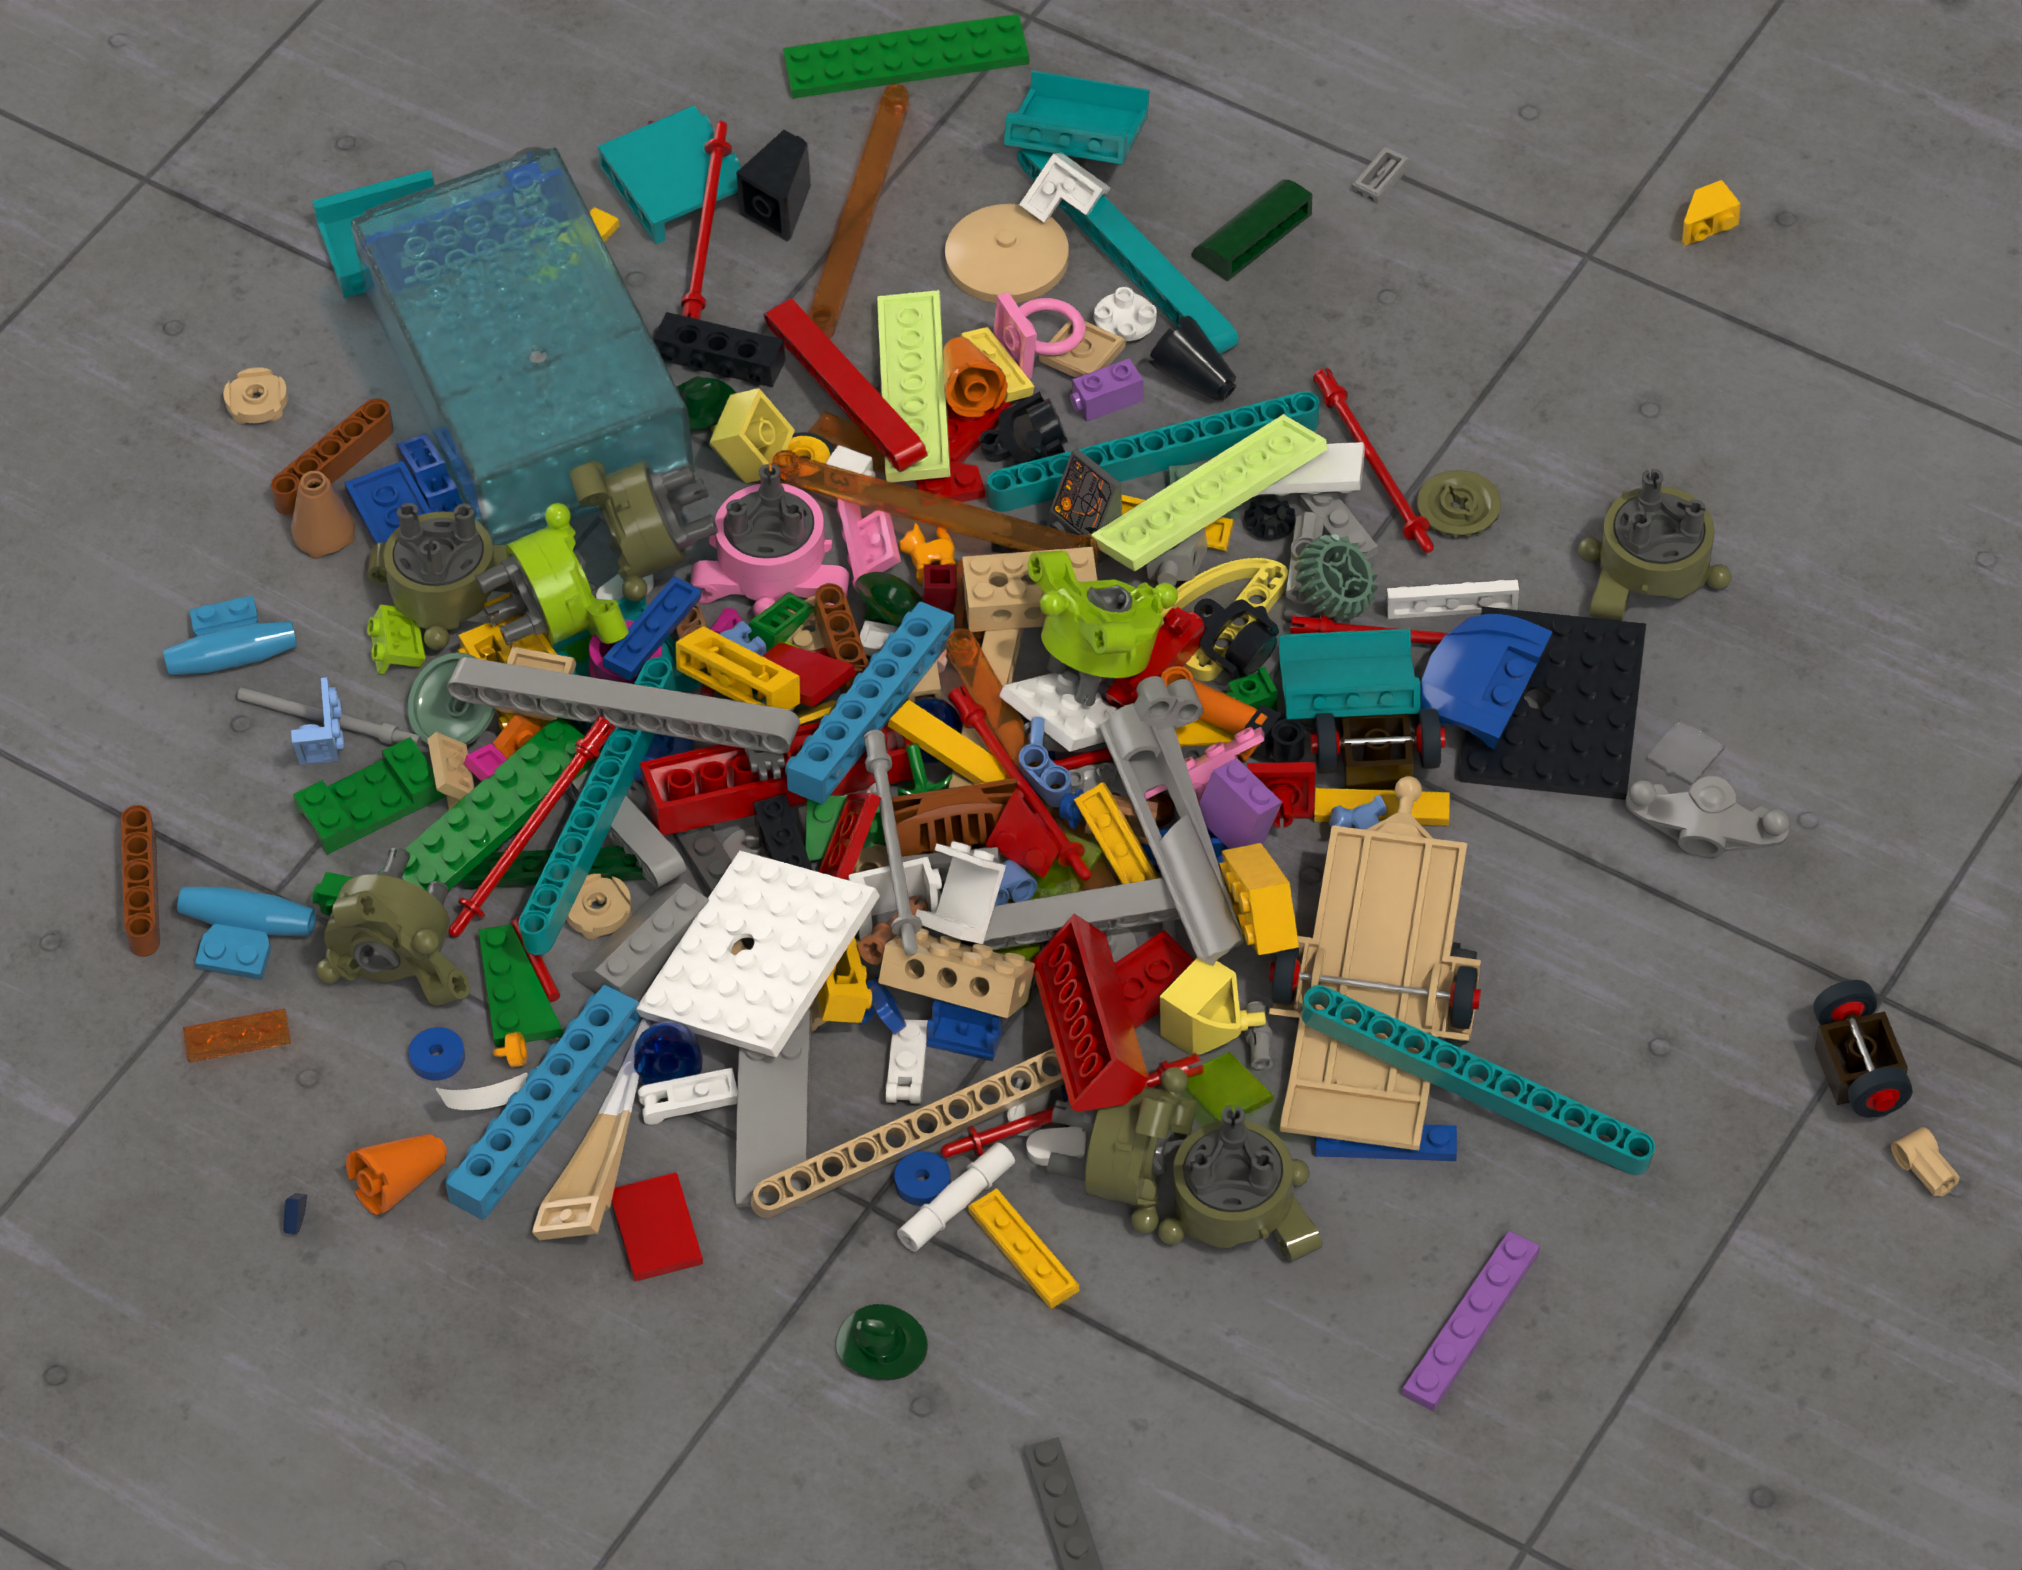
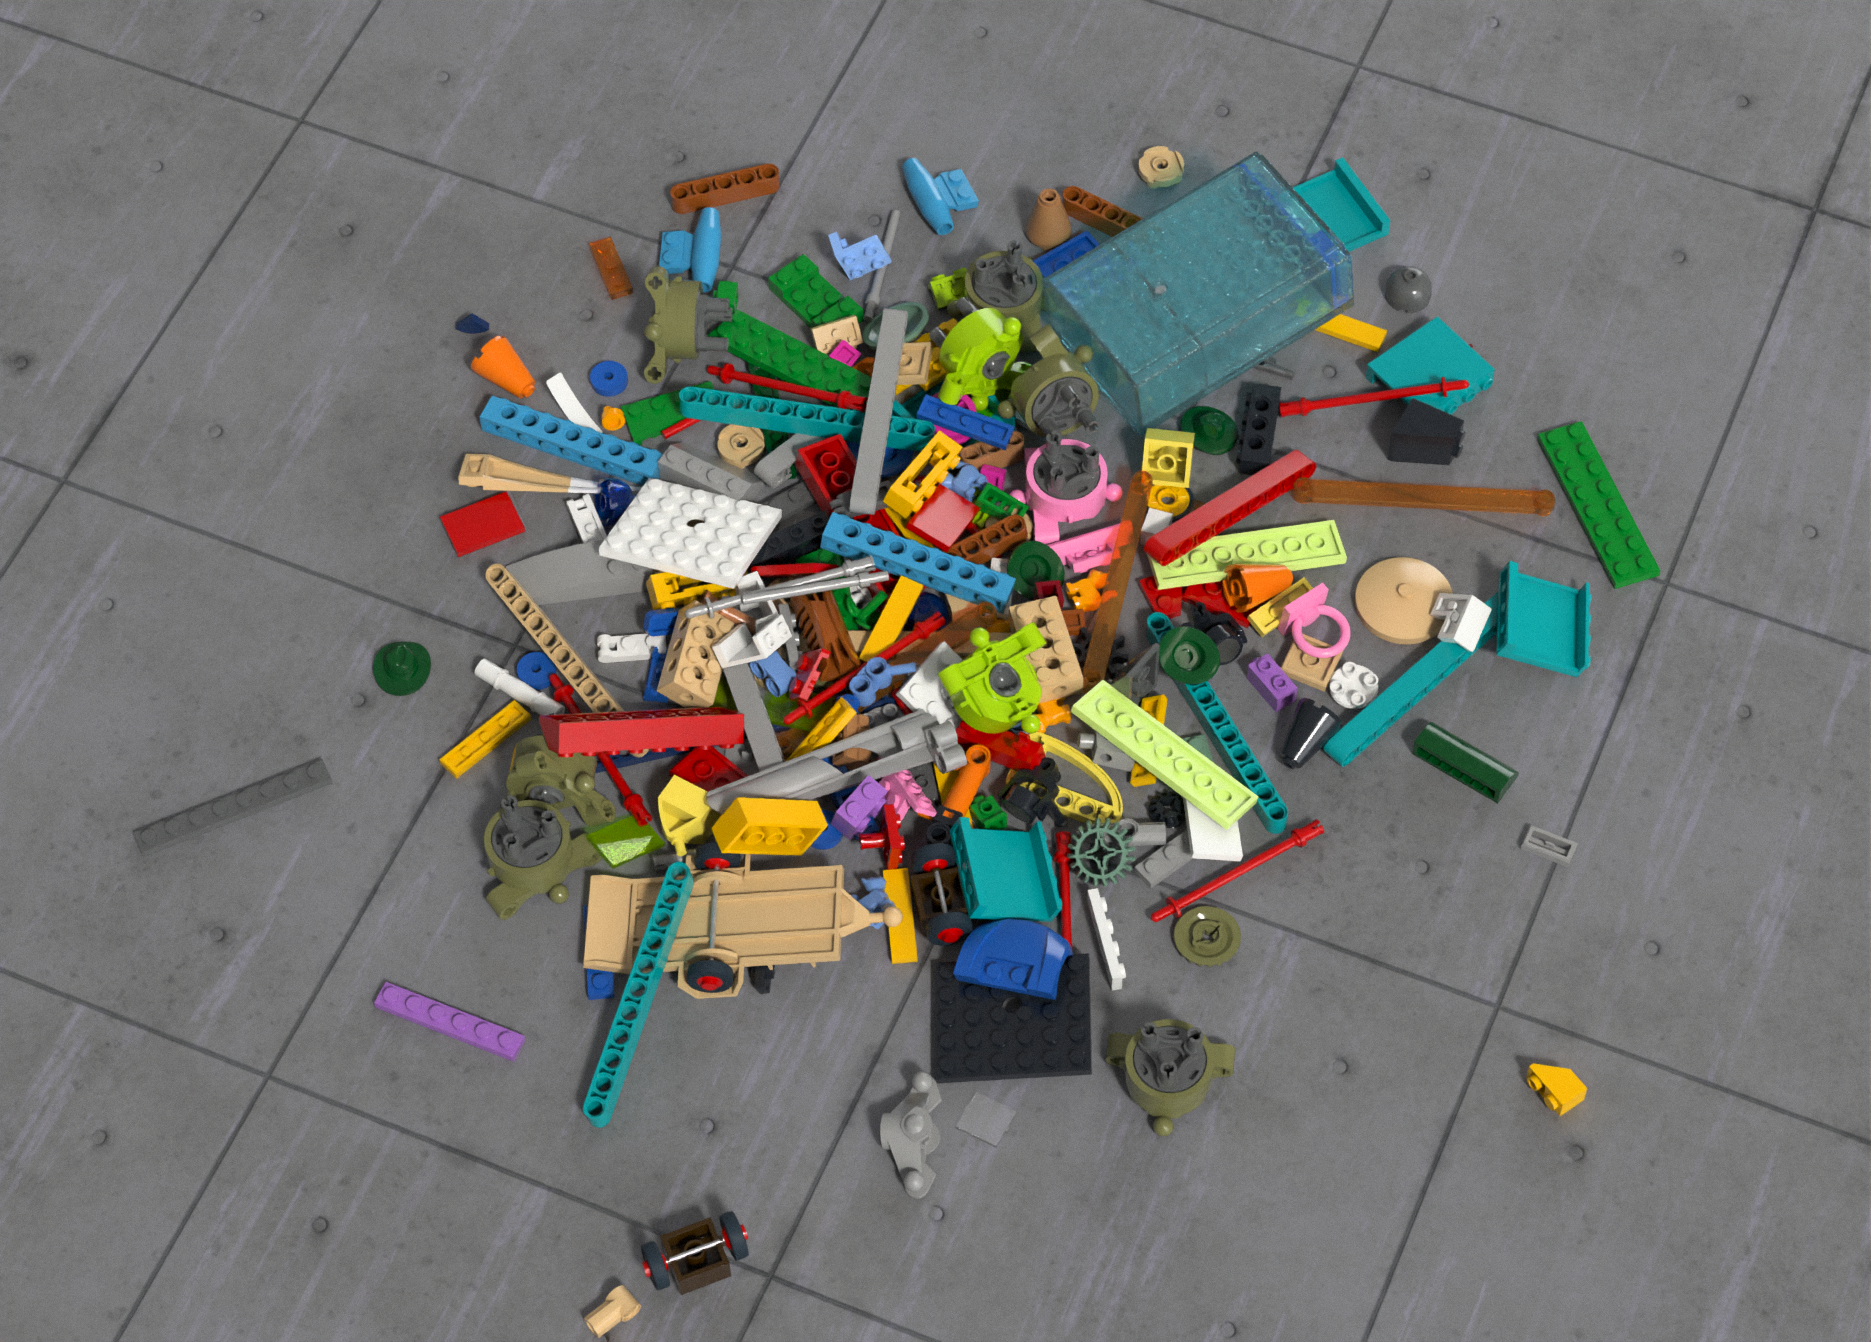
camera: 80 degrees right, 5 degrees up
(900, 752) = (862, 580): none -> light grey bar
(1072, 431) = (1188, 655): none -> dark green hat

